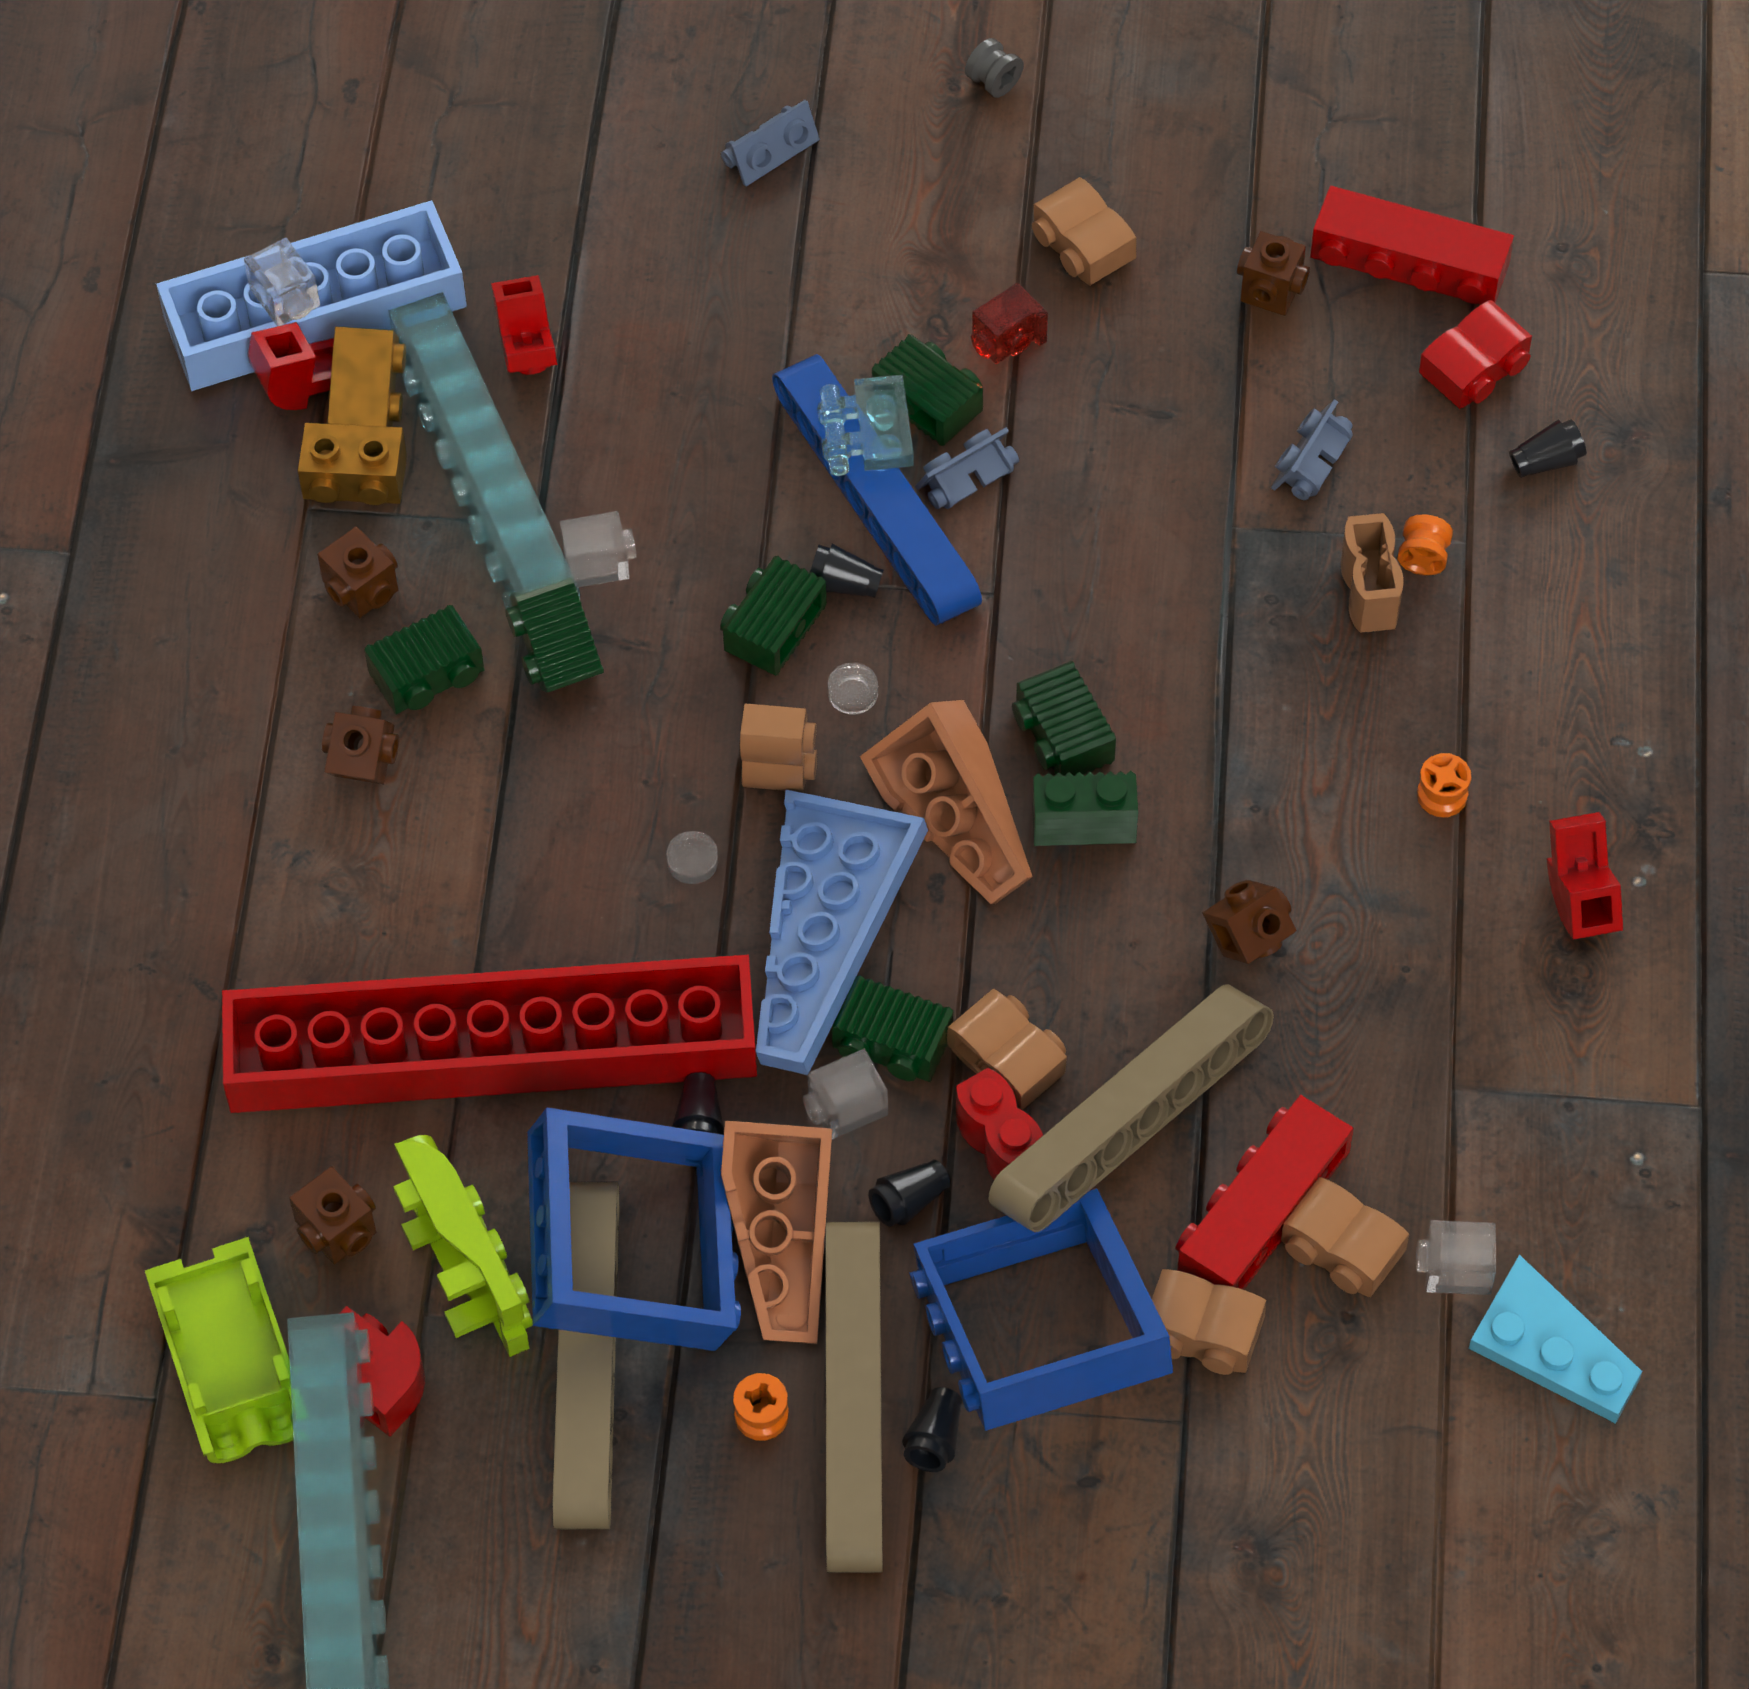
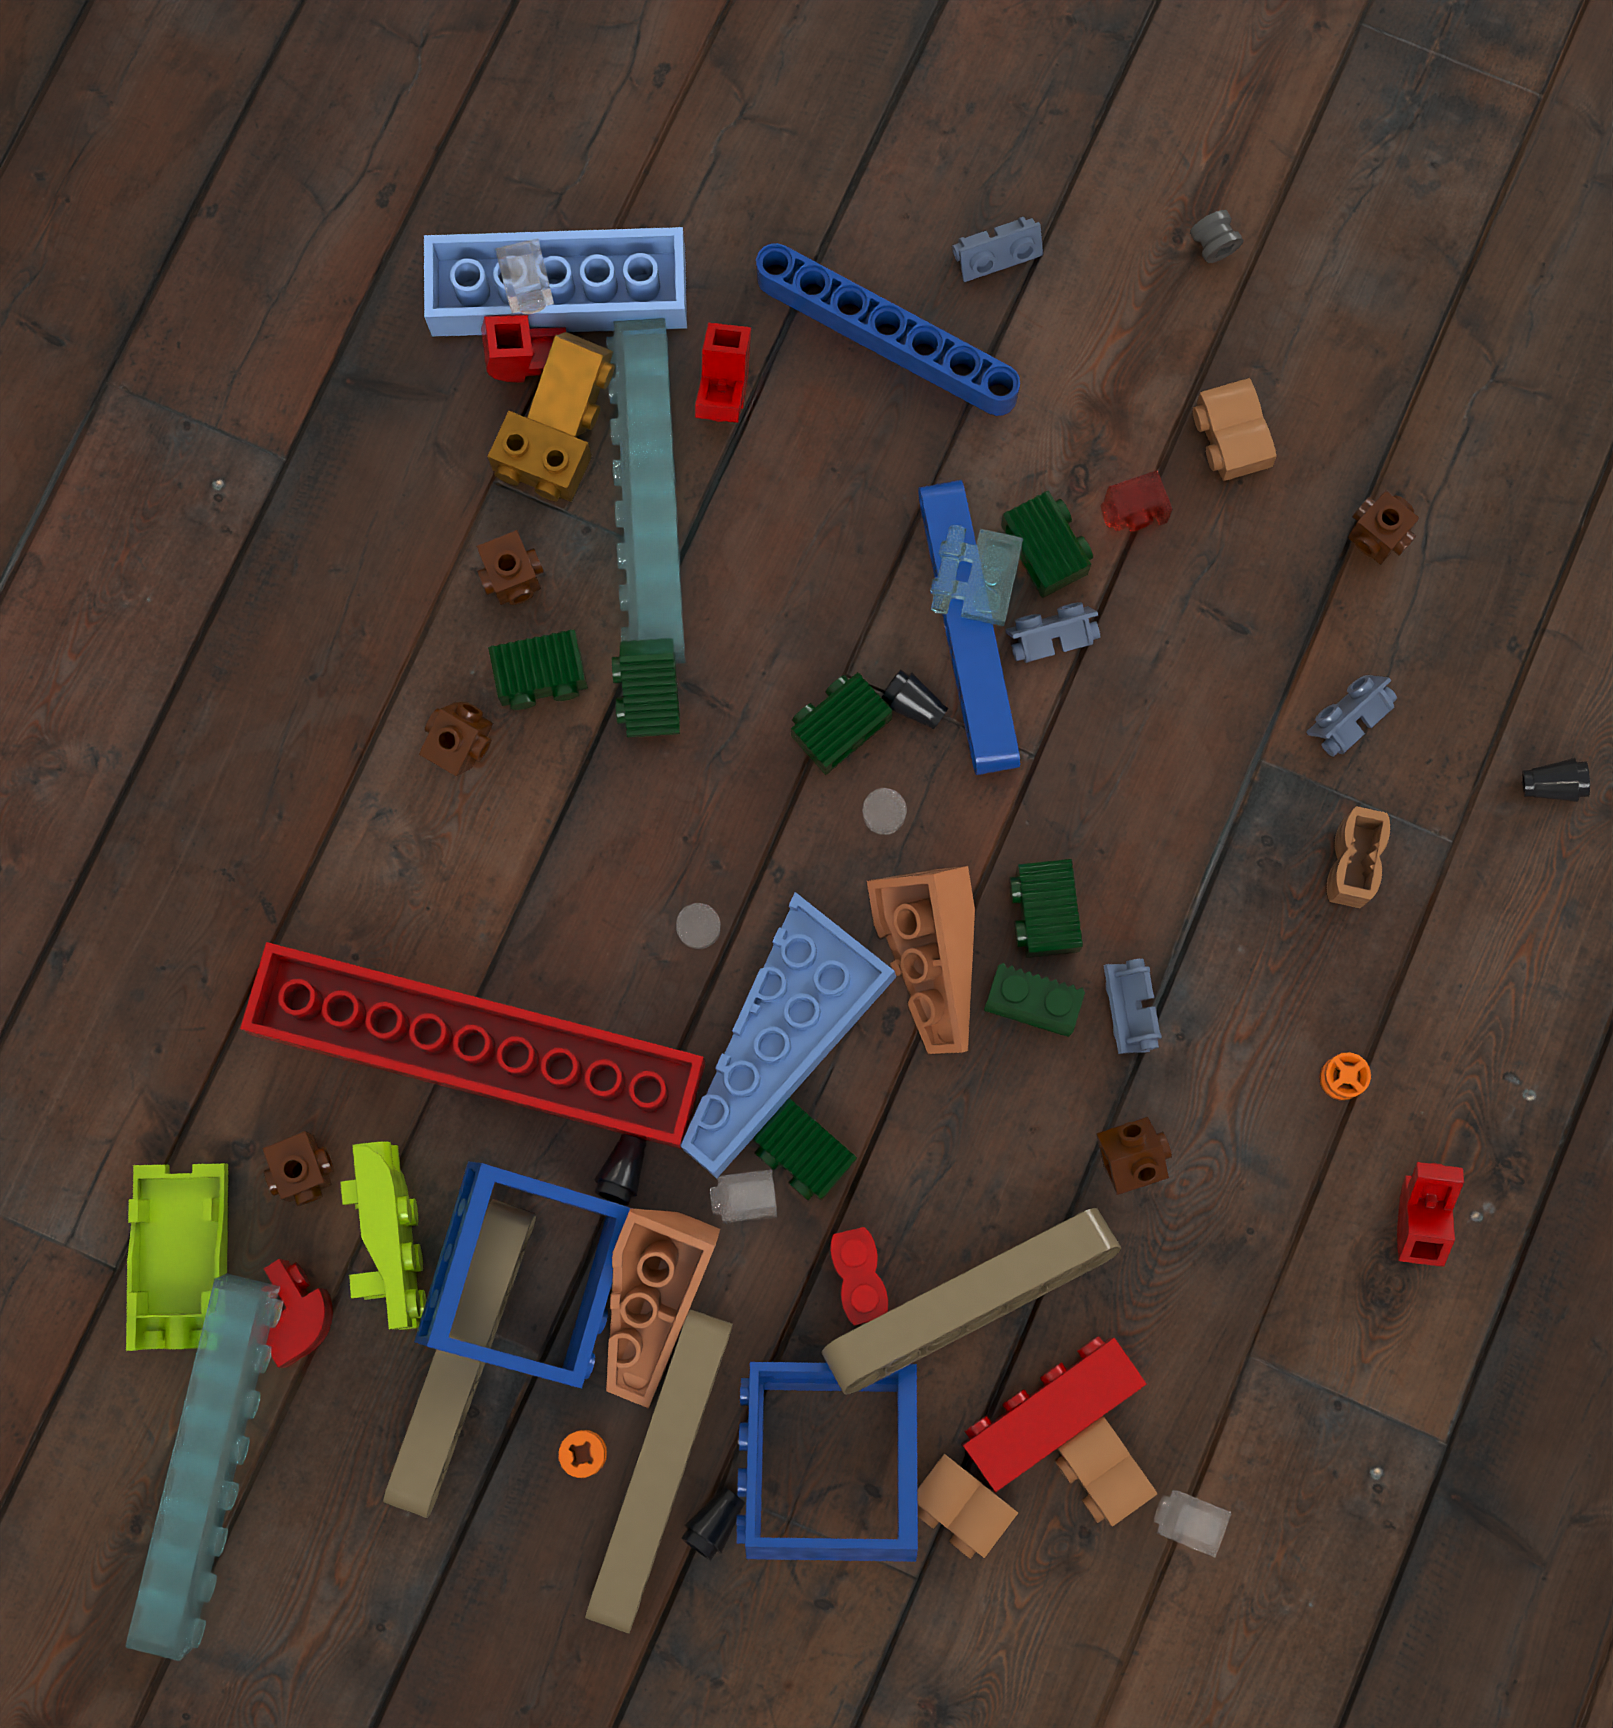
camera: 20 degrees right, 20 degrees up
(597, 548) = (714, 608): clear brick -> none
(682, 244) = (878, 311): none -> blue beam
(777, 748) = (796, 860): medium nougat brick -> none
(907, 1192) = (766, 1302): black cone -> none
(1001, 1038) = (892, 1200): medium nougat brick -> none
(1202, 802) = (1134, 1027): none -> sand blue hinge
(1411, 246) = (1514, 540): red brick -> none
(1425, 544) = (1415, 840): orange wheel -> none
(1476, 355) = (1530, 666): red brick -> none
(1554, 1344) = (1241, 1620): medium azure wing -> none

